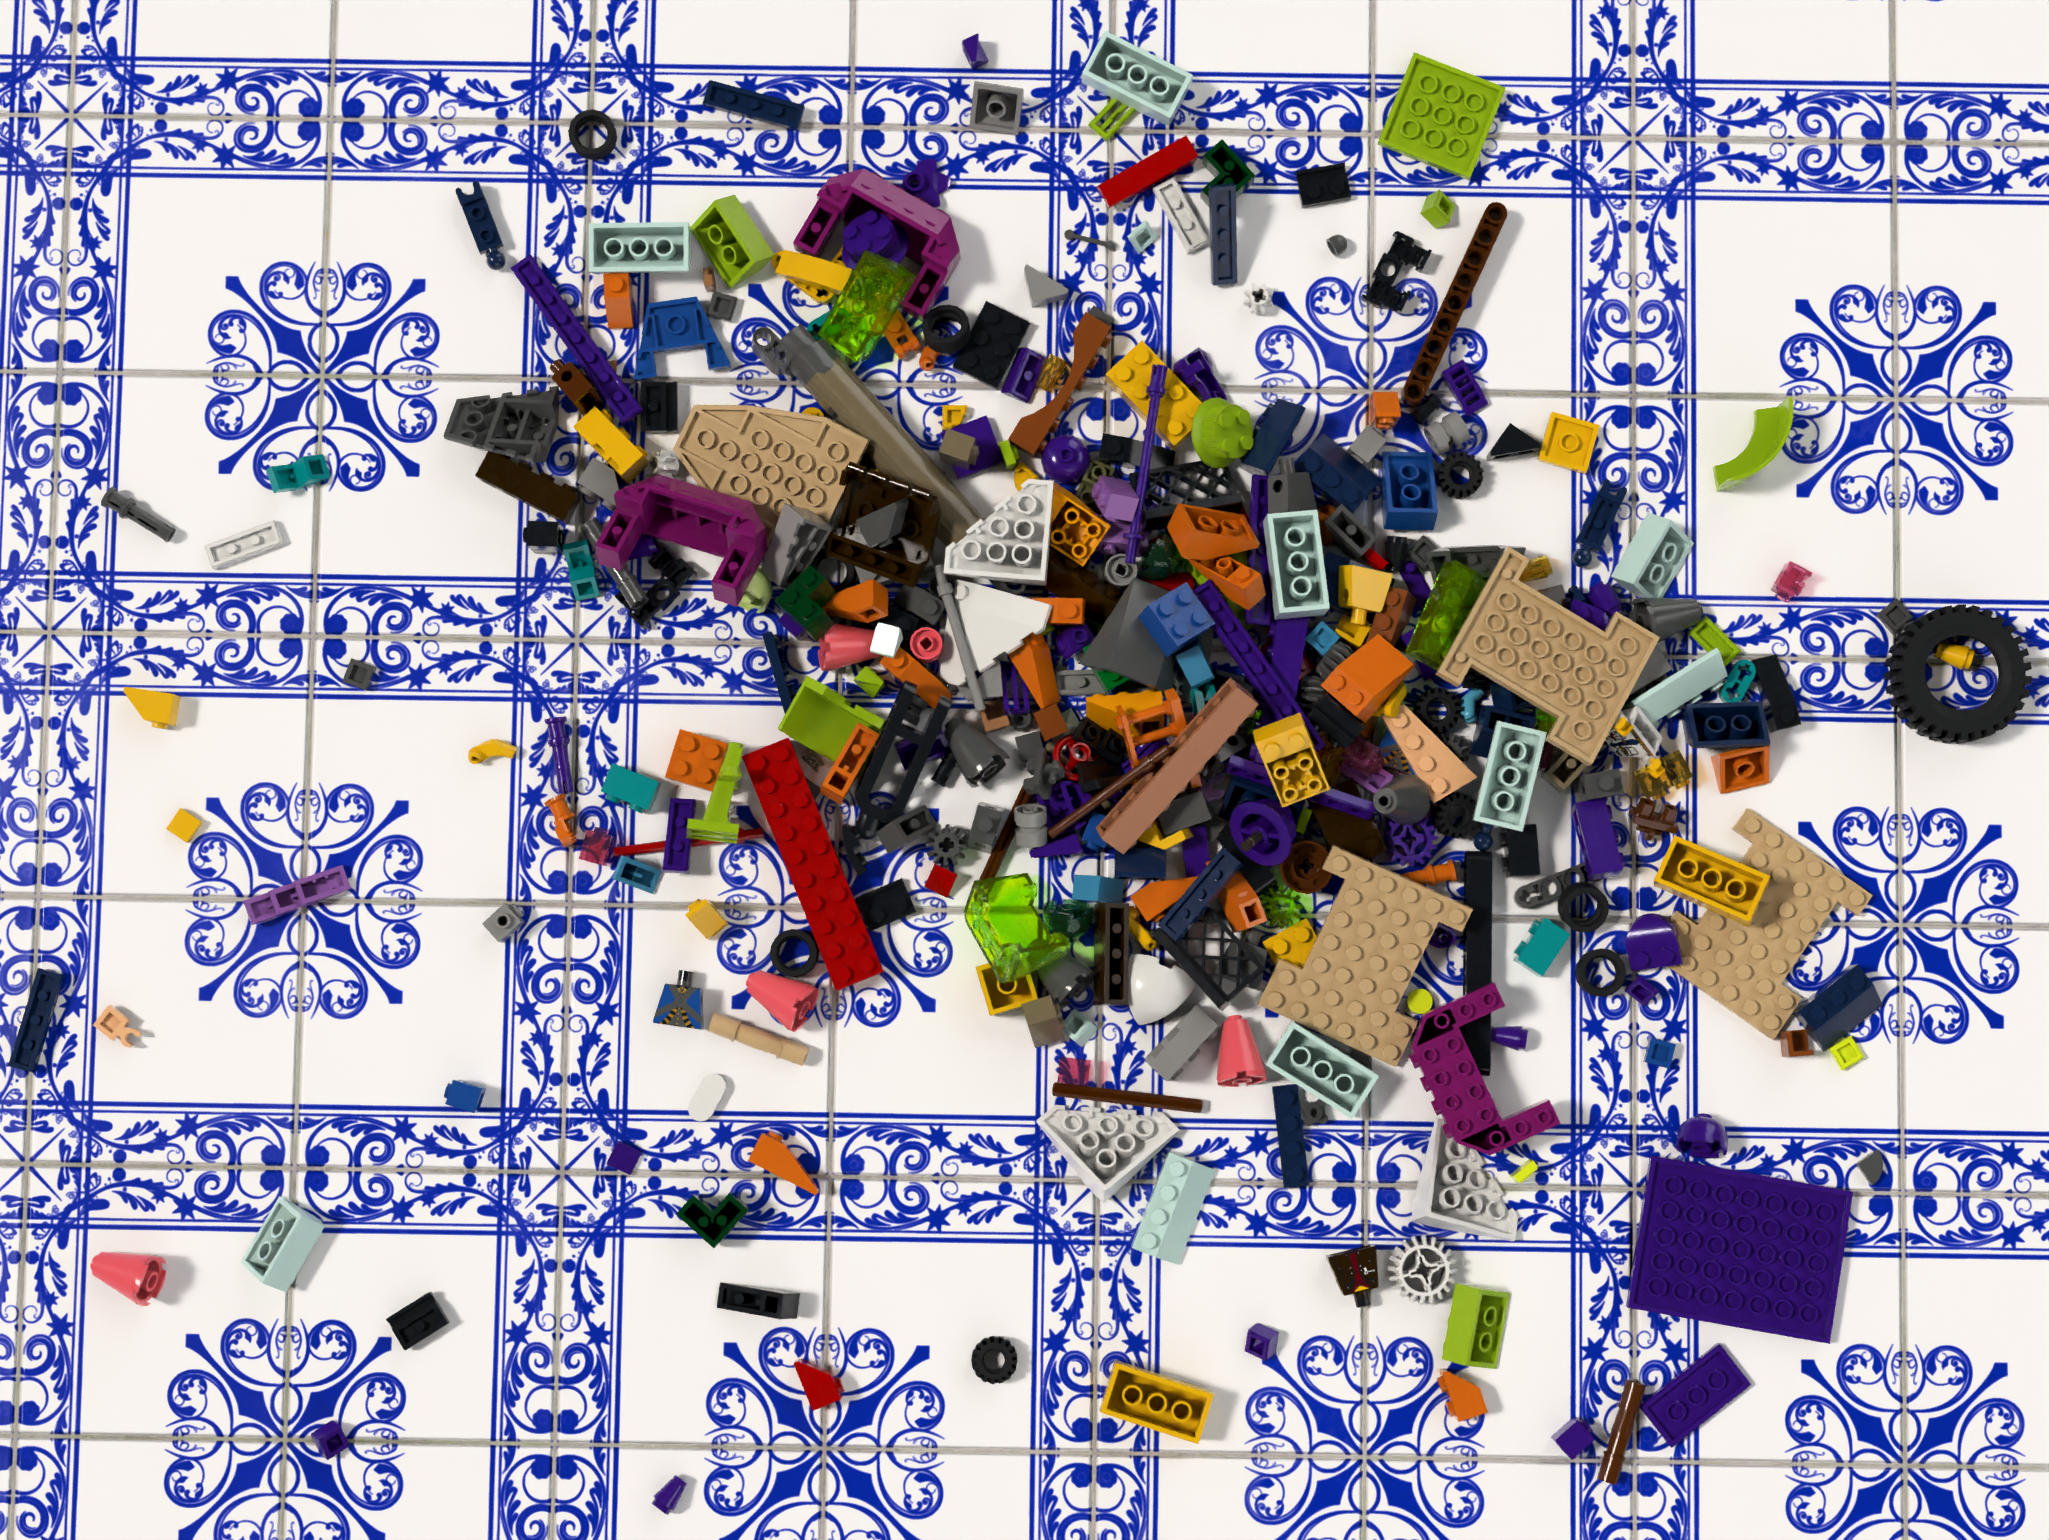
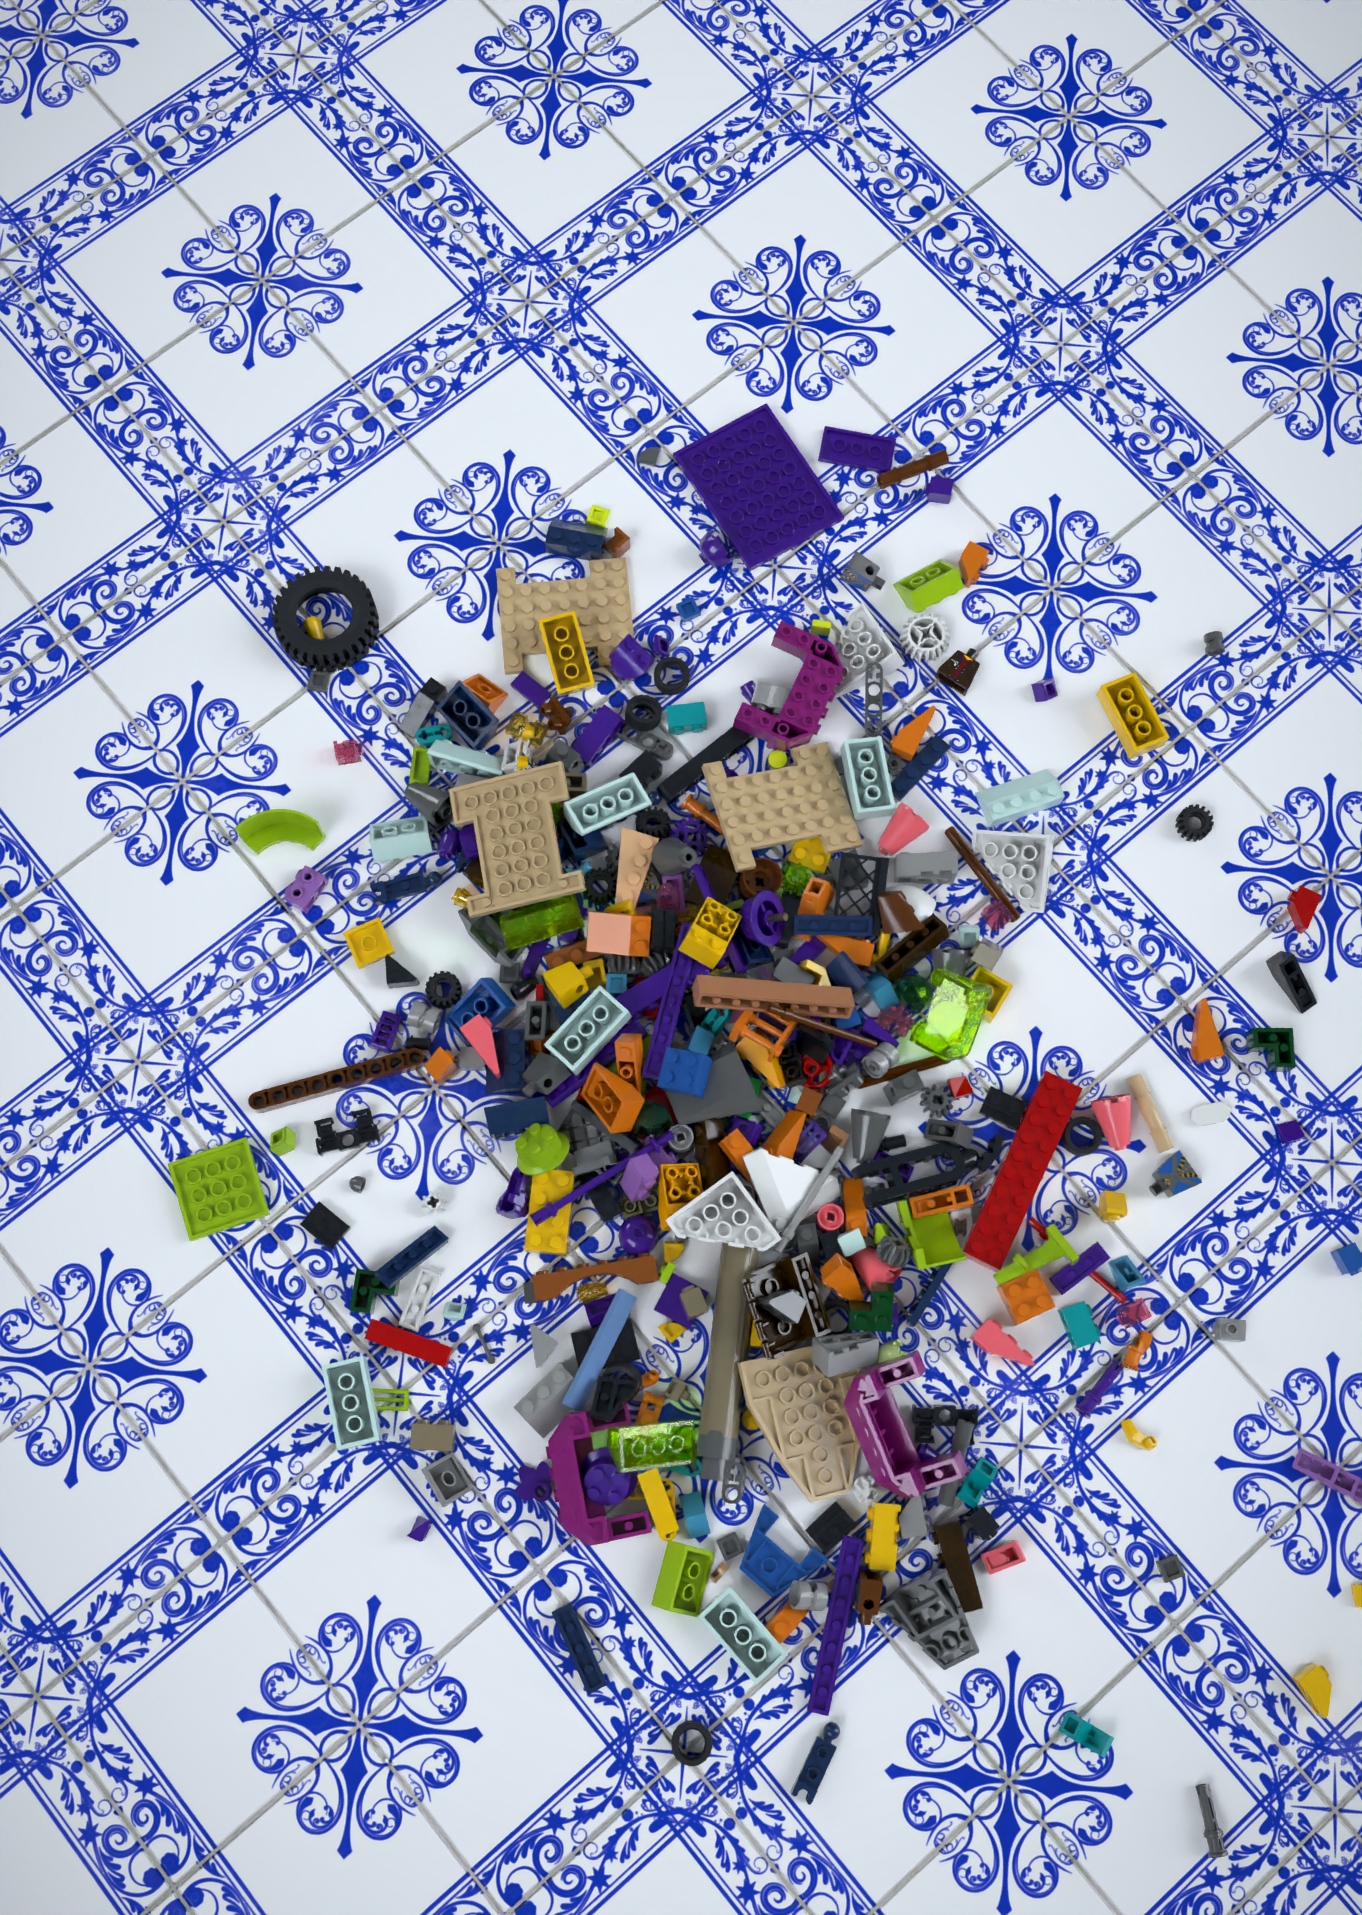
camera: 135 degrees left, 10 degrees down
(244, 544) = (1162, 1727): white tile -> none
(500, 532) = (1003, 1556): none -> coral slope
(617, 338) = (808, 1595): none -> light grey wheel
(684, 696) = (995, 1342): none -> coral slope
(776, 298) = (695, 1514): none -> dark azure slope
(843, 670) = (894, 1251): none -> dark grey gear
(895, 374) = (676, 1390): none -> dark tan tile
(939, 304) = (611, 1396): none -> black wing
(985, 255) = (543, 1403): none -> light grey slope
(991, 332) = (599, 1350): none -> medium blue tile
(1045, 126) = (432, 1436): none -> dark tan brick
(1065, 868) = (898, 1017): none -> clear pink hips
(1157, 966) = (897, 914): none -> reddish brown slope
(1170, 474) = (594, 1157): none -> dark grey panel
(1328, 1153) = (910, 736): none -> orange slope
(1374, 463) = (480, 1036): none -> coral slope
(1396, 1153) = (870, 699): none -> dark grey beam
(1488, 1041) = (769, 697): none -> light grey brick
(1556, 1263) = (862, 573): none -> dark grey torso
(1676, 425) = (305, 889): none -> medium lavender brick
(1706, 819) = (530, 689): none -> dark purple tile

